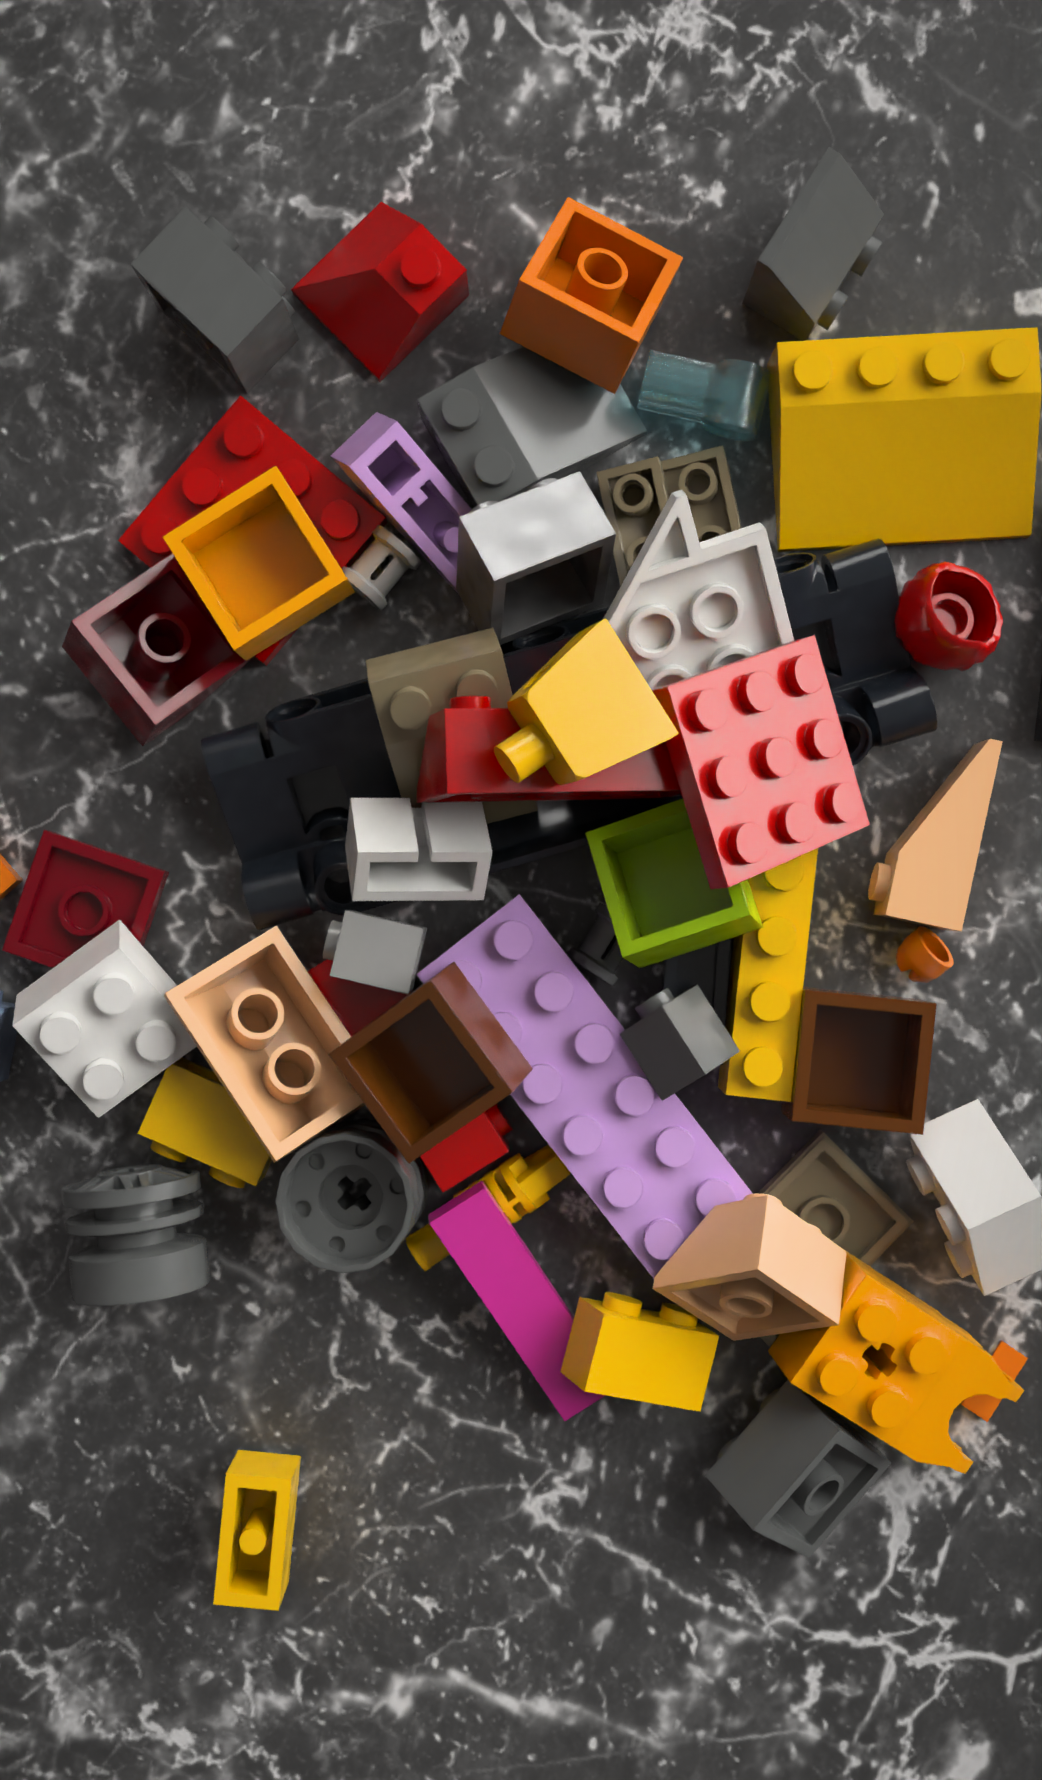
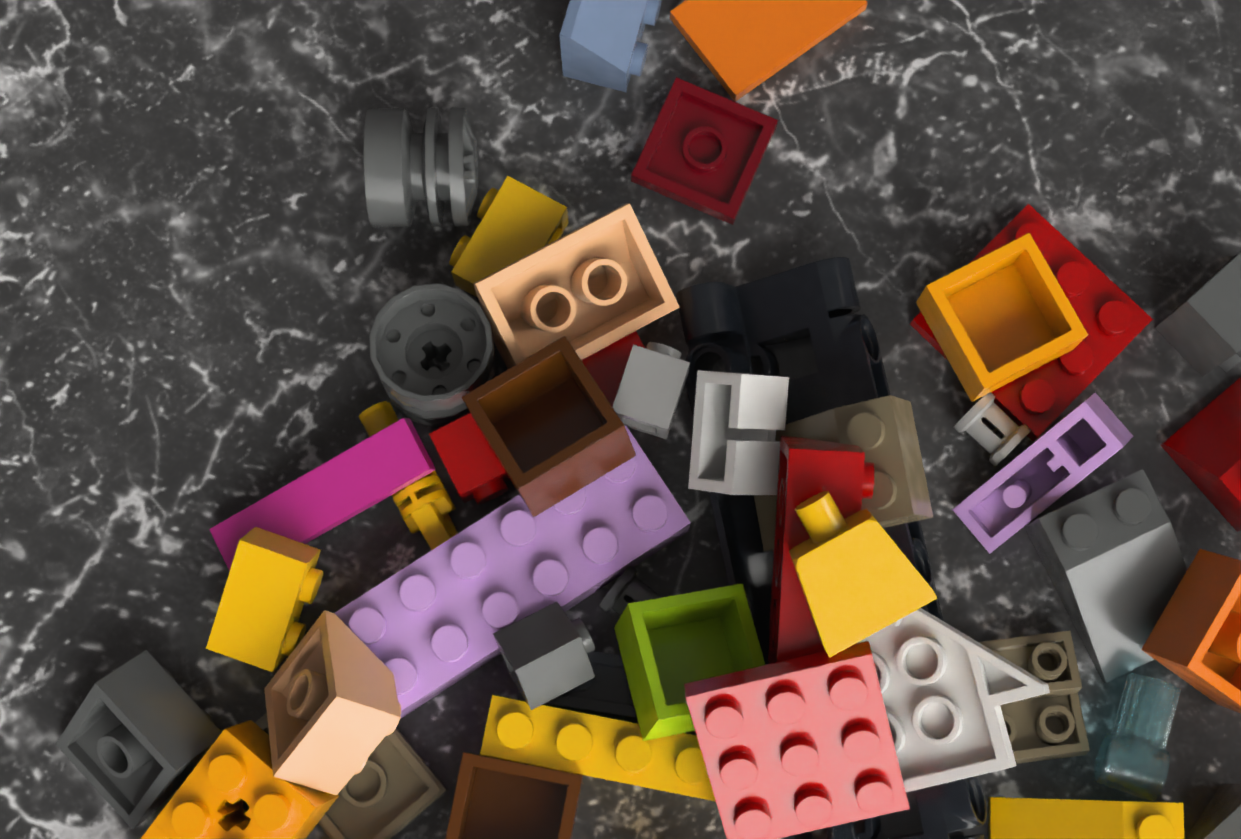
camera: 90 degrees right, 10 degrees down
(103, 1019) = (609, 154): white piece -> none
(152, 650) = (928, 222): dark red slope -> none
(257, 1530) = (149, 249): yellow brick -> none
(534, 557) = (993, 560): flat silver piece -> none

